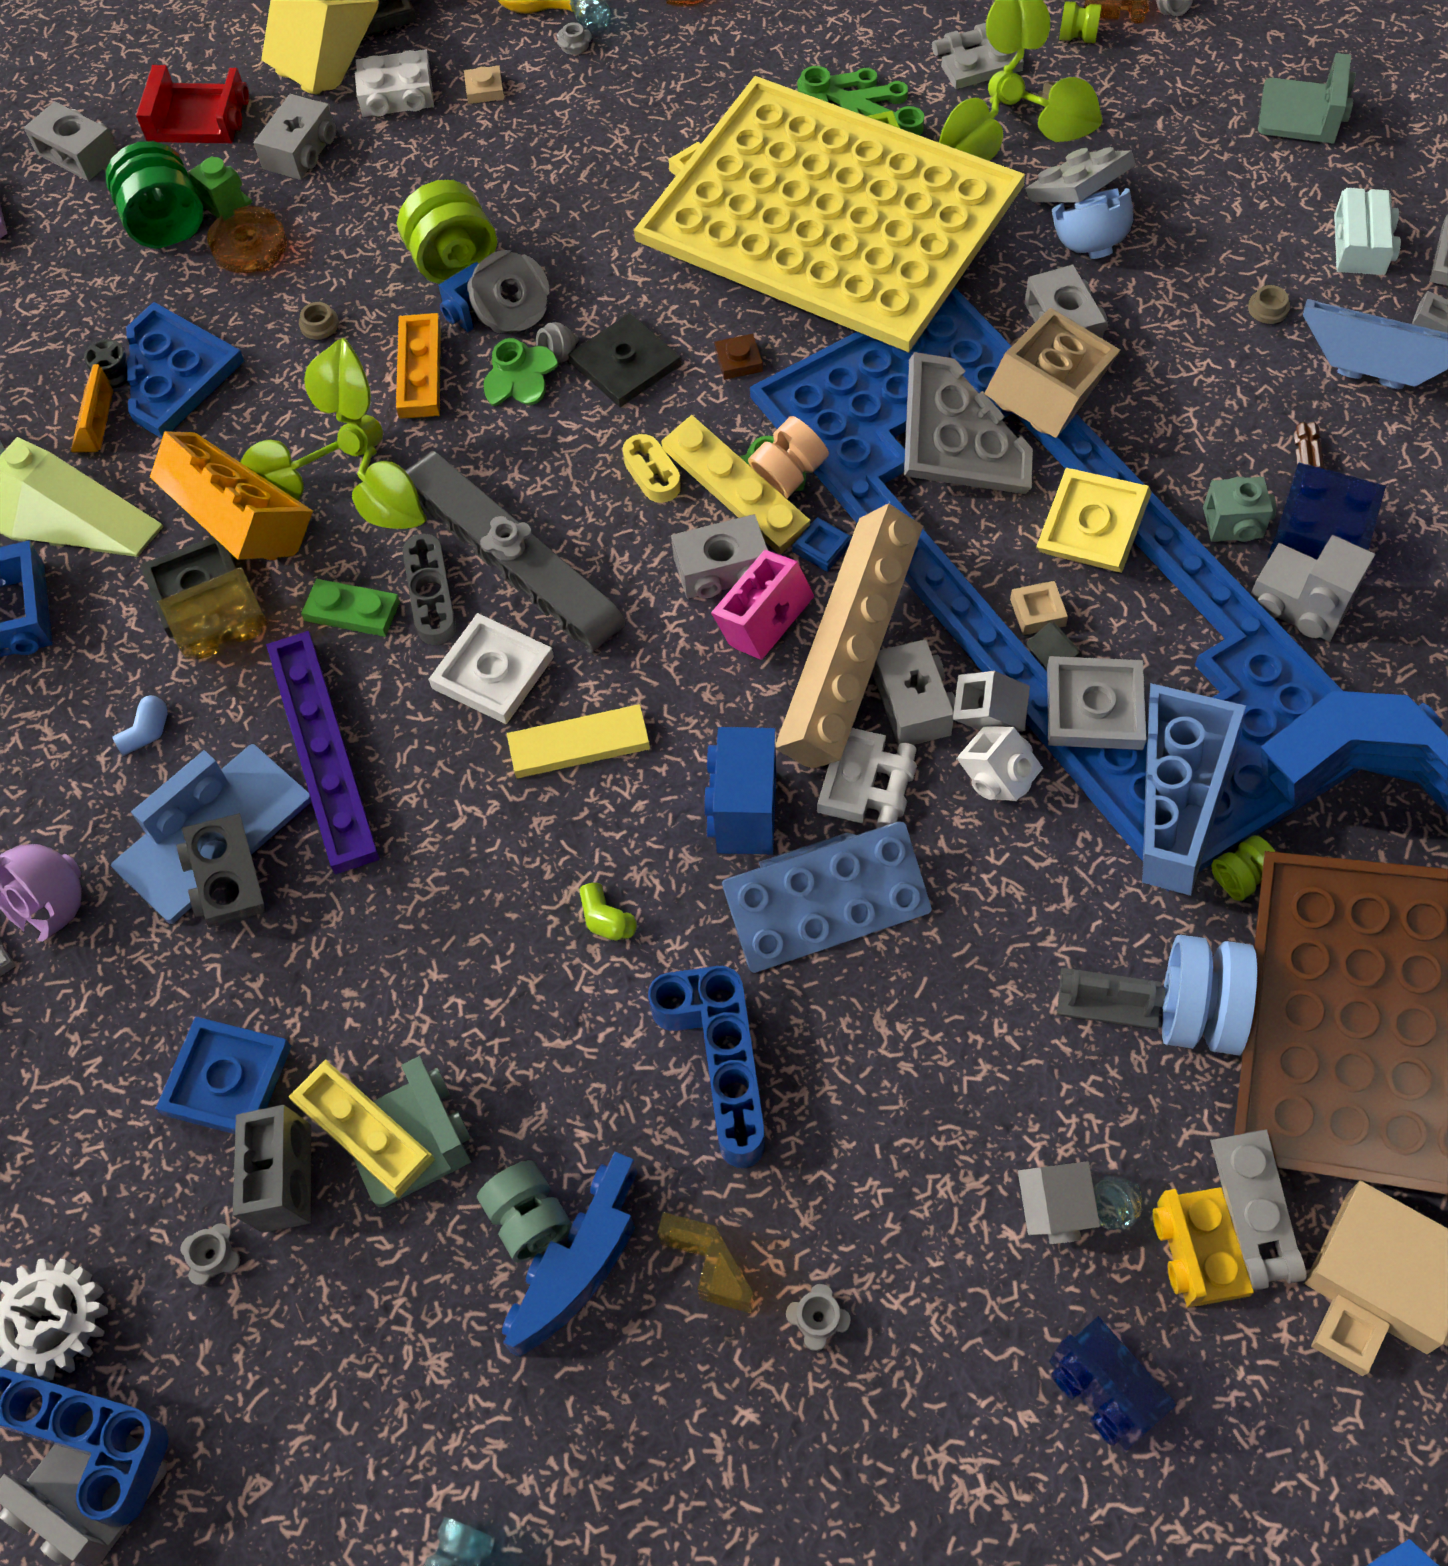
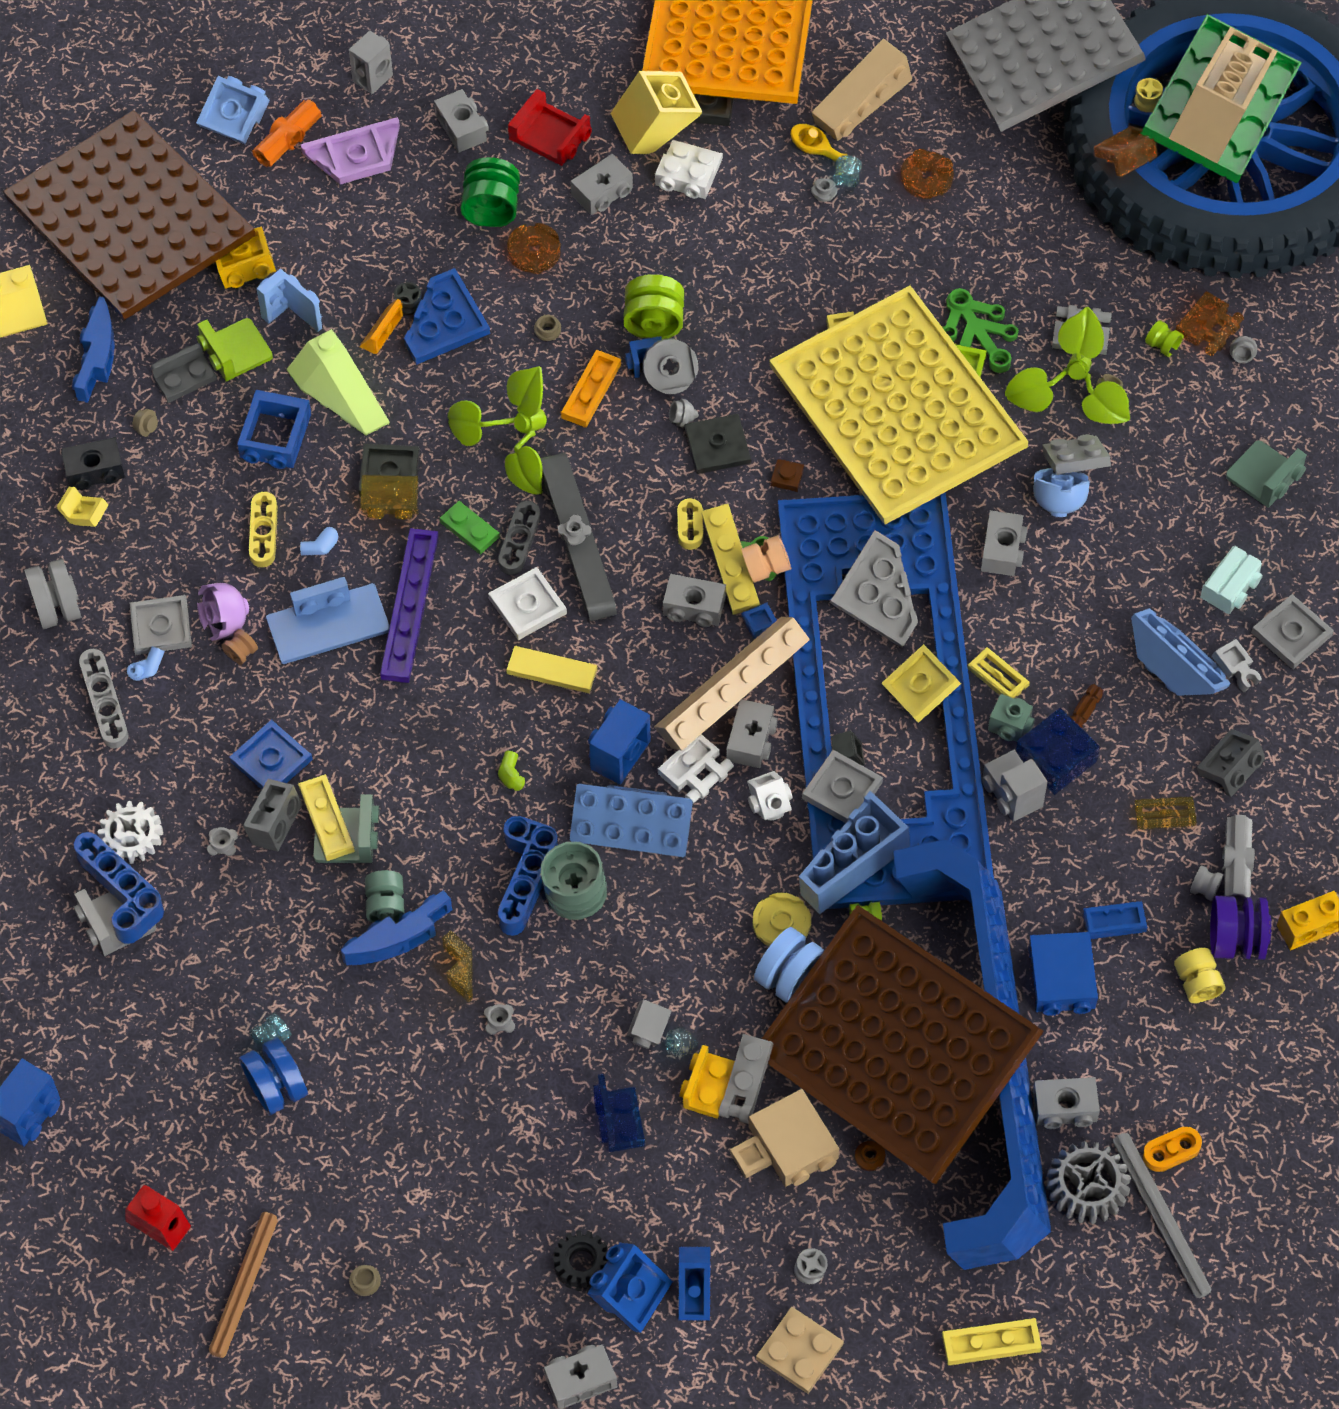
camera: 25 degrees right, 0 degrees up
(33, 736) = (257, 520): none -> light yellow beam
(91, 929) = (239, 646): none -> medium nougat wheel
(218, 187) = (534, 203): bright green brick -> none
(229, 499) = (433, 427): light orange wedge -> none
(232, 868) = (328, 649): dark grey brick -> none
(483, 84) = (745, 198): tan plate -> none
(518, 372) = (648, 425): bright green plate -> none
(763, 604) = (698, 641): dark pink brick -> none
(808, 1003) = (569, 866): none -> sand green wheel
(991, 701) = (784, 759): light grey brick -> none
(1038, 606) = (857, 719): tan plate -> none
(1050, 372) = (956, 579): tan slope -> none
(1110, 998) = (741, 943): dark grey hinge -> none
(1123, 946) = (795, 916): none -> light yellow tile
(1171, 474) = (991, 682): none -> light yellow tile
(1269, 304) = (1135, 599): dark tan plate -> none

